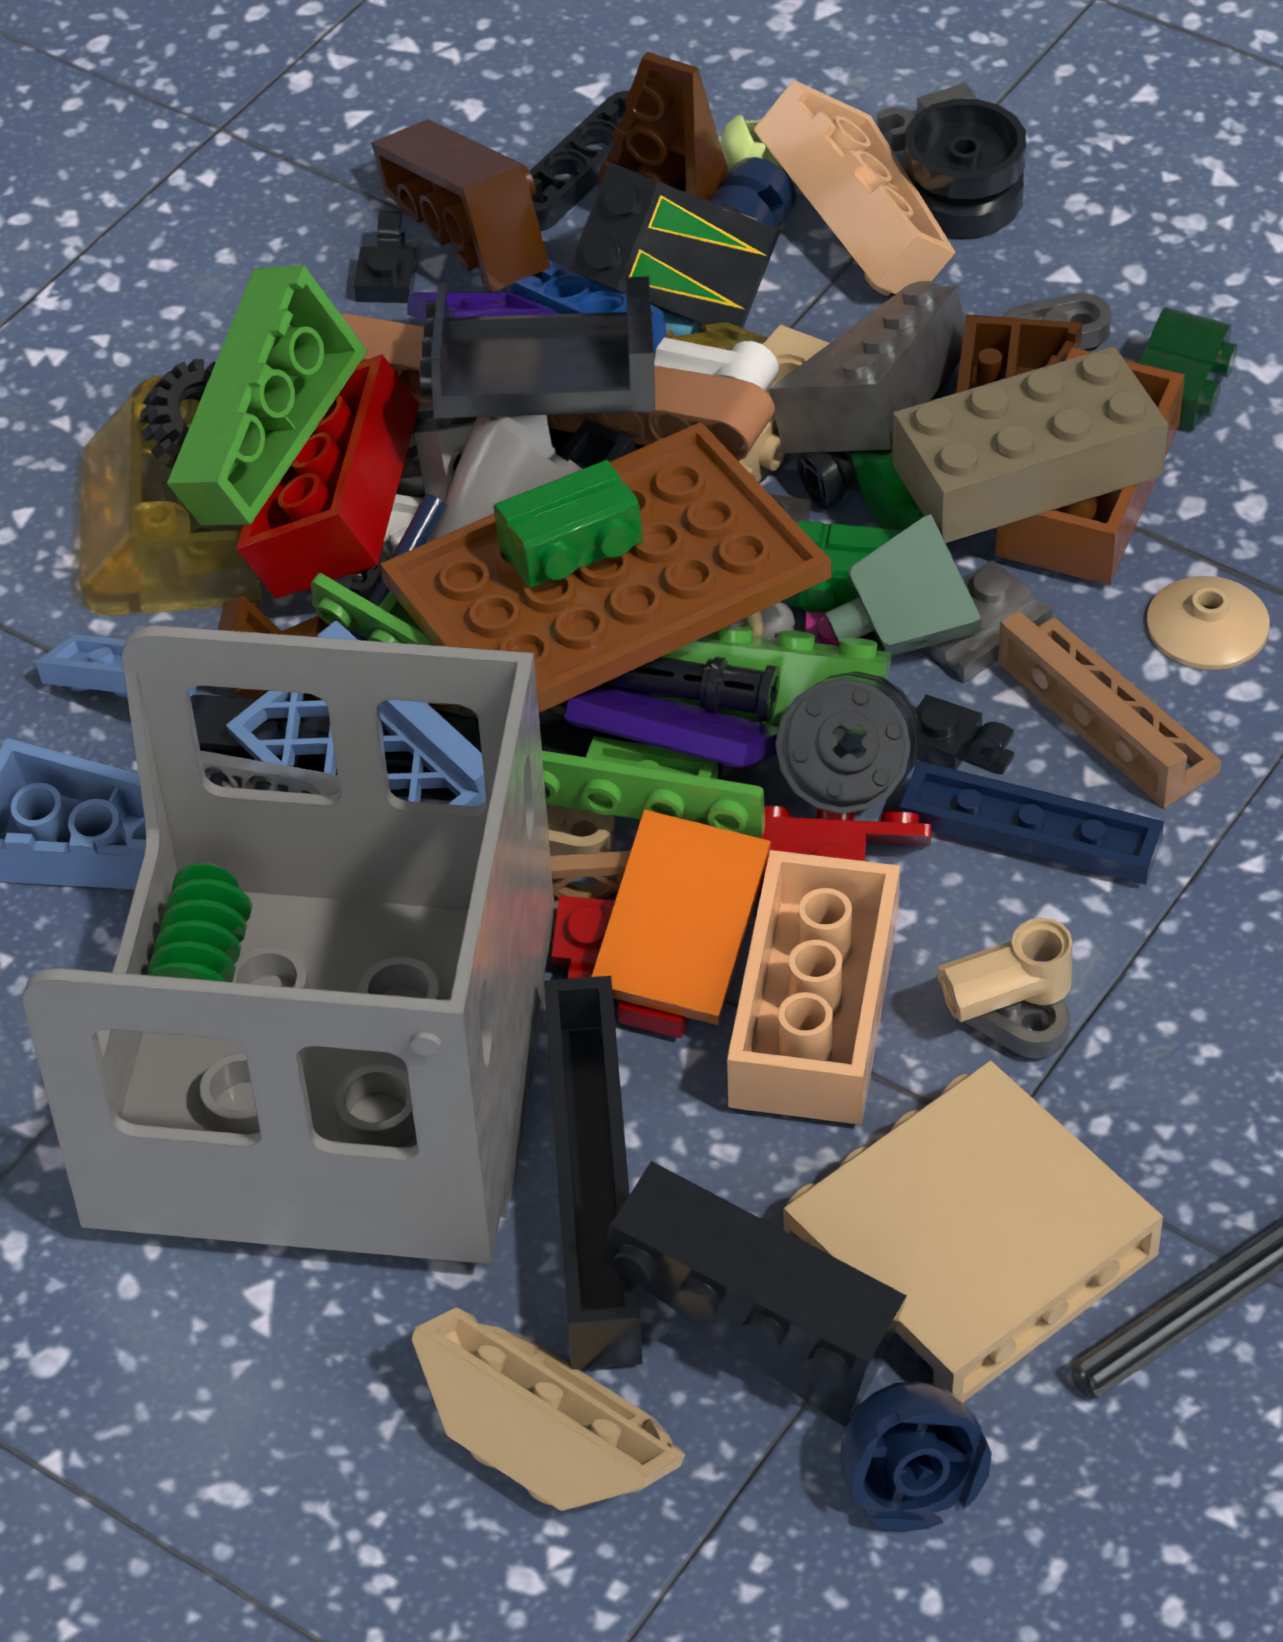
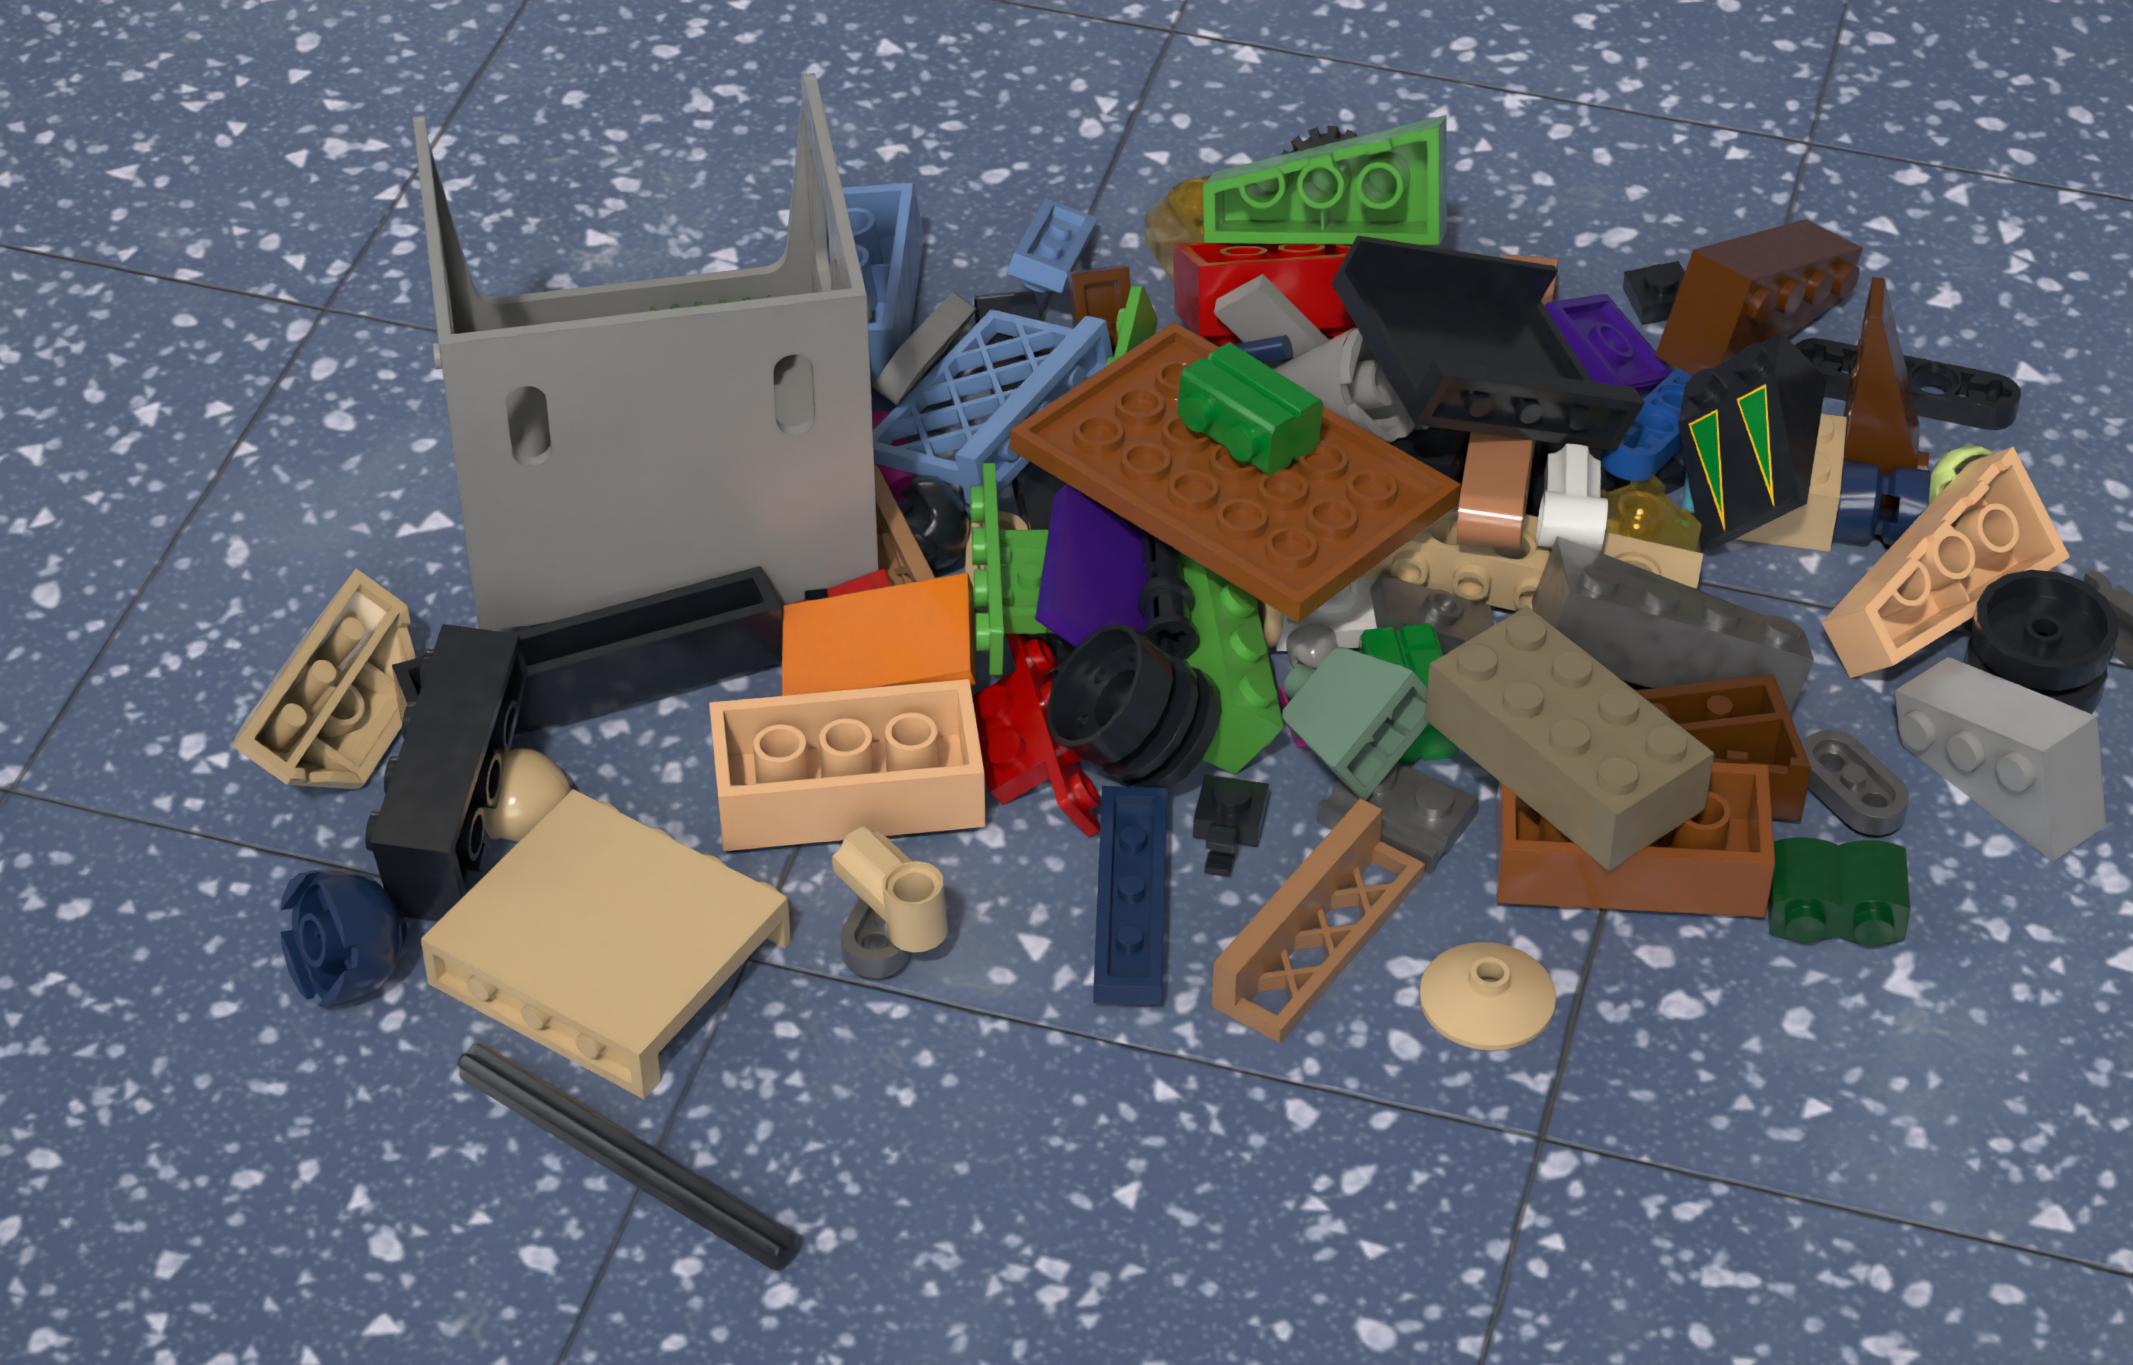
camera: 70 degrees right, 5 degrees down
(400, 497) = (1263, 312): none -> light grey tile
(1063, 221) = (2008, 751): none -> light grey wedge

